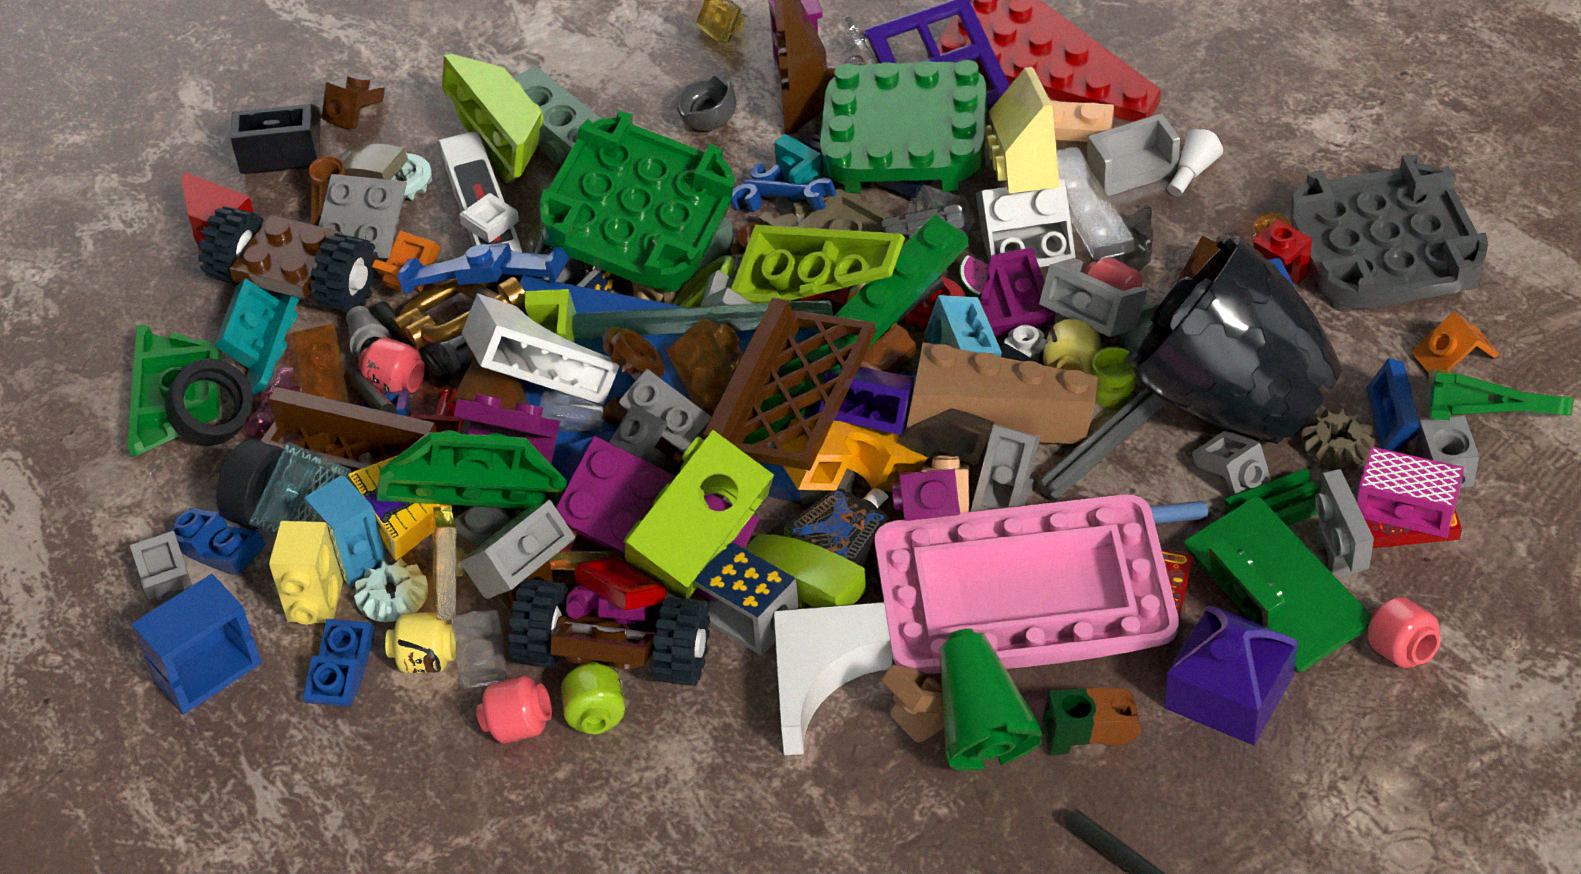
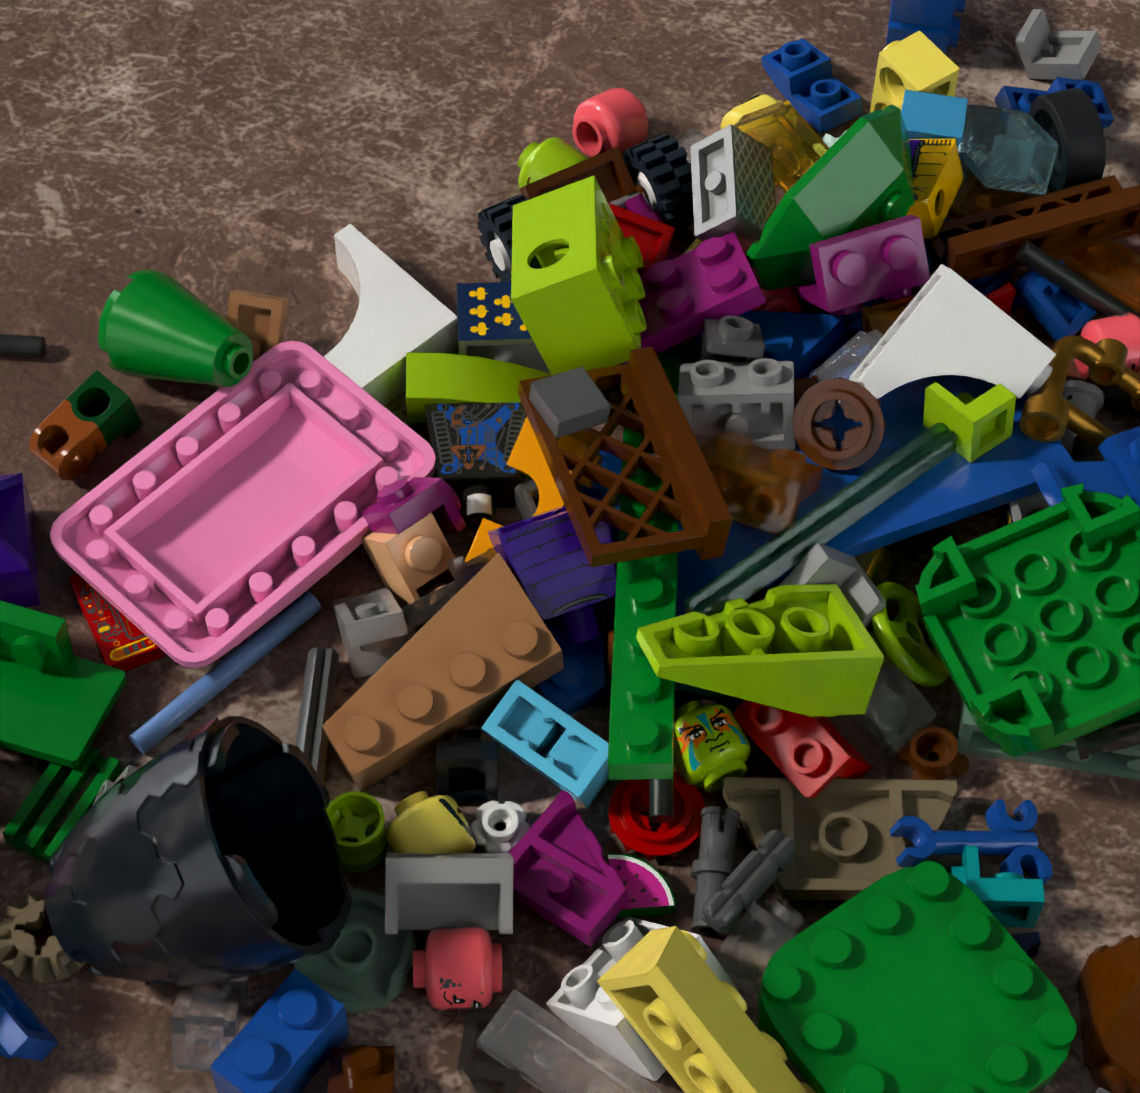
camera: 135 degrees right, 10 degrees up
(793, 421) = (569, 402): none -> dark grey tile

